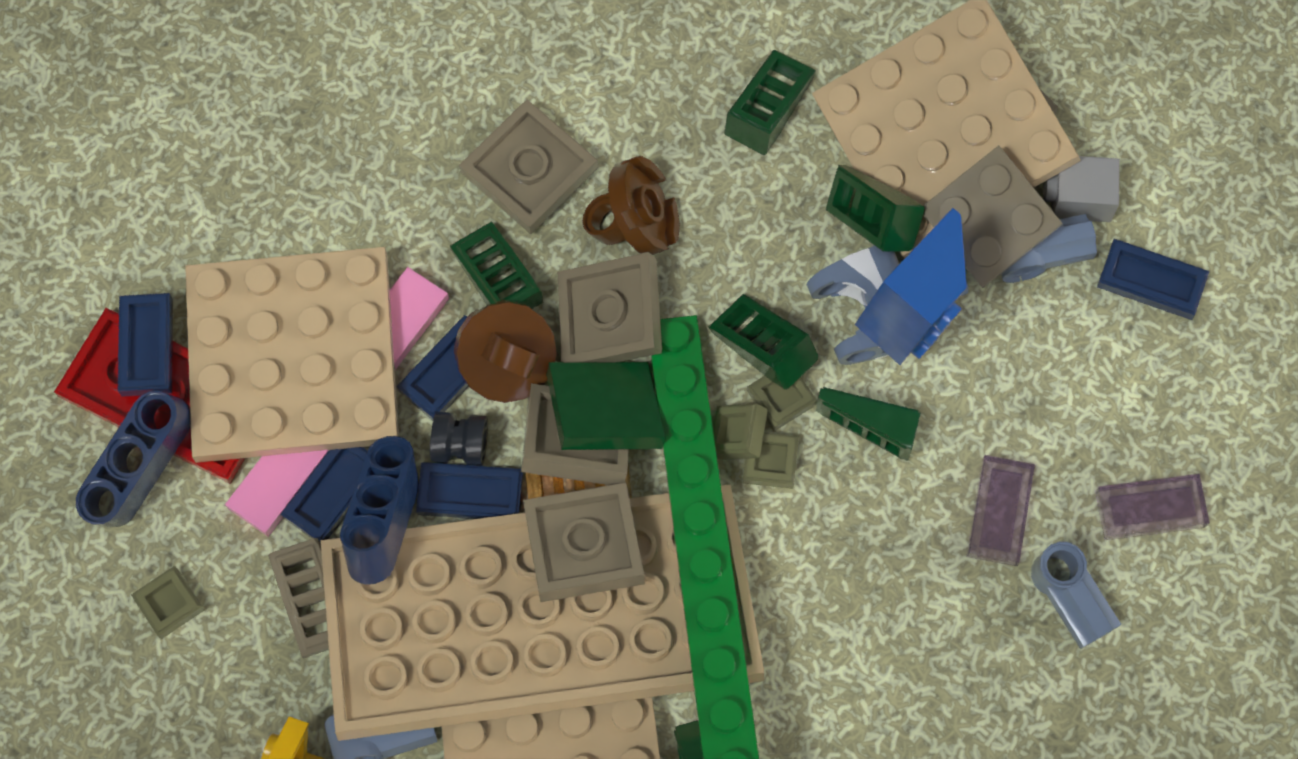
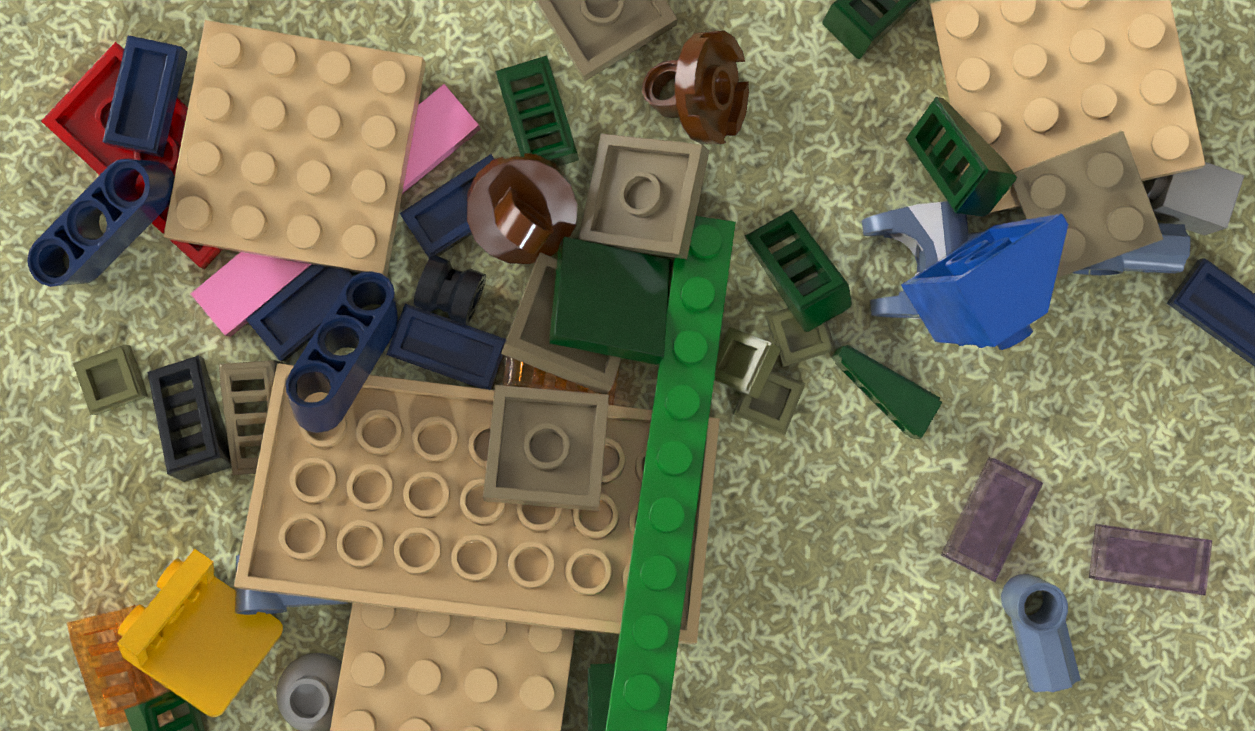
camera: 15 degrees right, 15 degrees up
(268, 644) = (213, 433): none -> black slope

